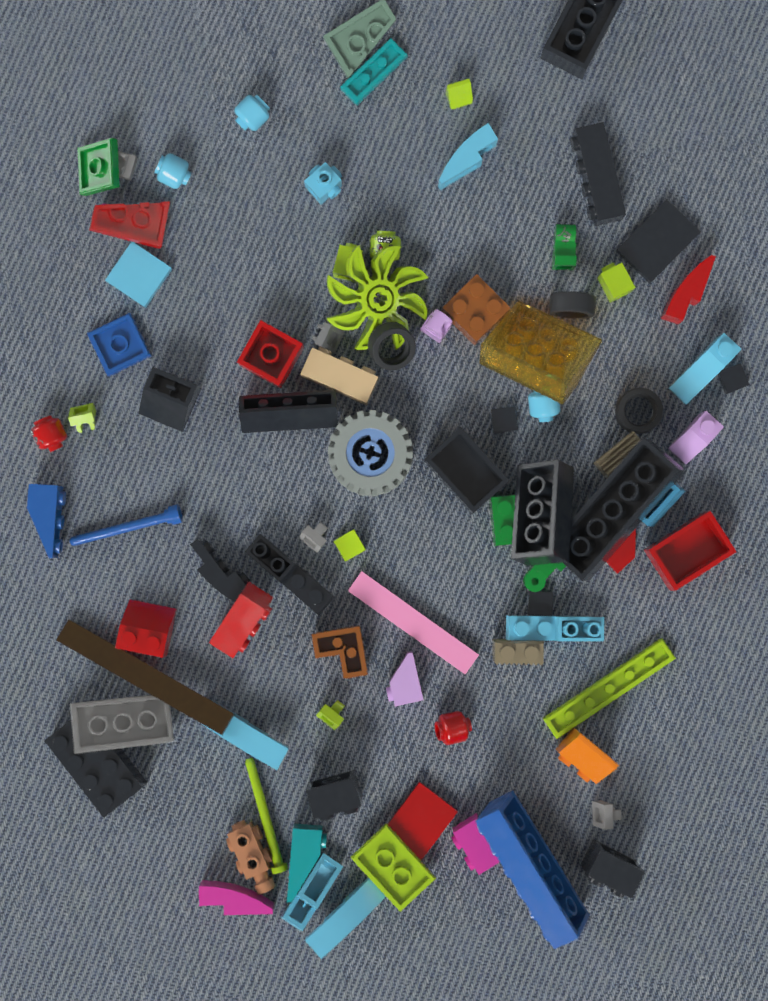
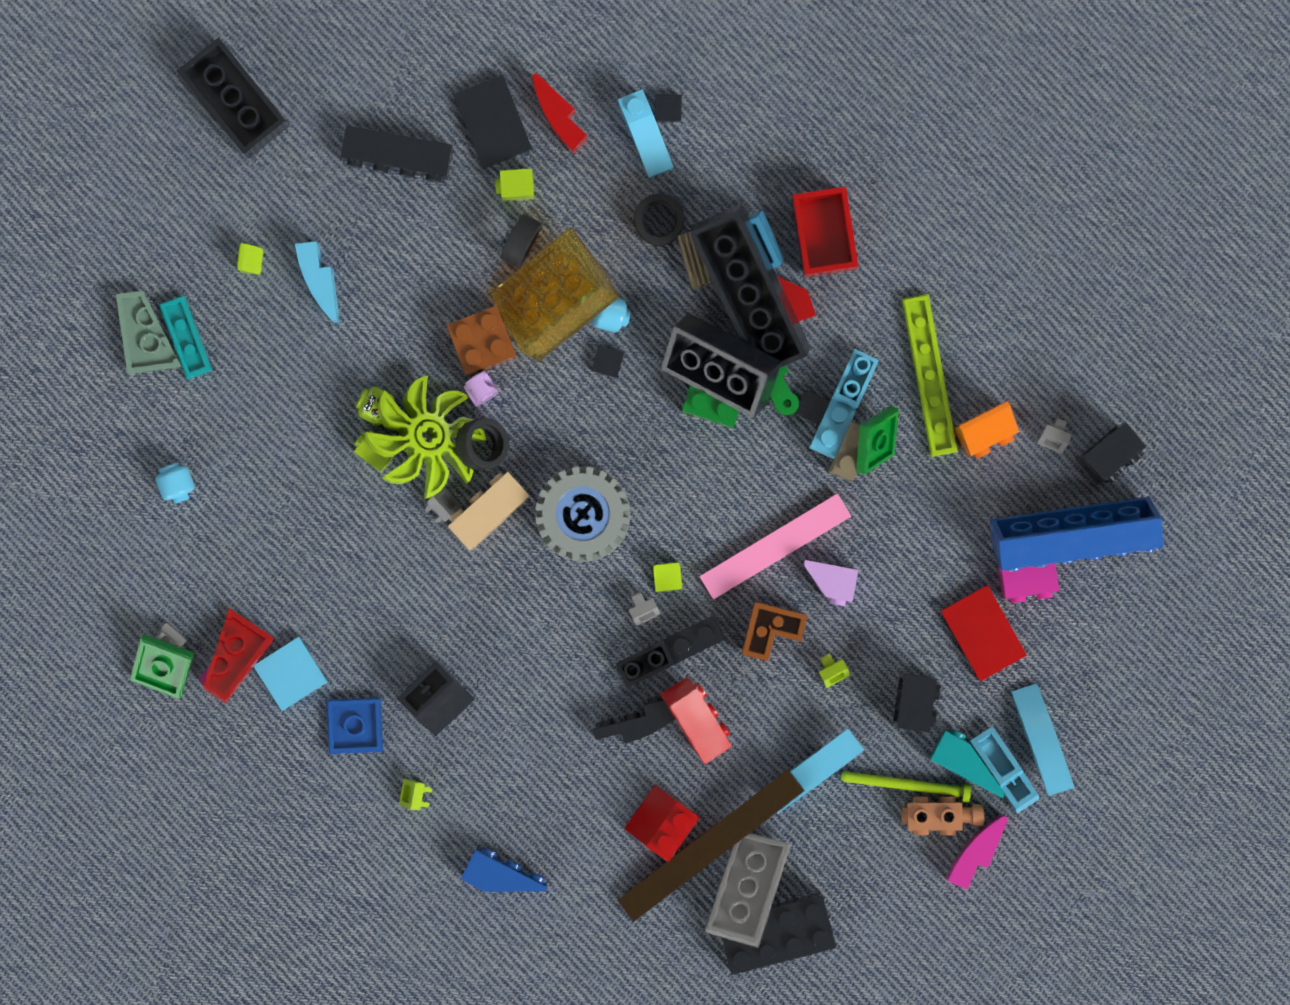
camera: 70 degrees left, 0 degrees up
(49, 433) = (416, 837): red head -> none
(170, 515) = (556, 748): blue piece -> none
(172, 171) = (199, 591): medium azure head -> none
(270, 354) = (435, 572): red brick -> none
(288, 411) = (502, 579): black brick -> none
(324, 182) = (288, 447): medium azure brick -> none
(393, 867) = (1015, 675): lime tile -> none
(452, 728) = (900, 552): red head -> none
(466, 470) = (643, 423): black piece -> none
(537, 669) = (877, 440): none -> green tile
(564, 247) = (456, 221): green leg -> none
(695, 437) = (711, 174): lavender slope -> none

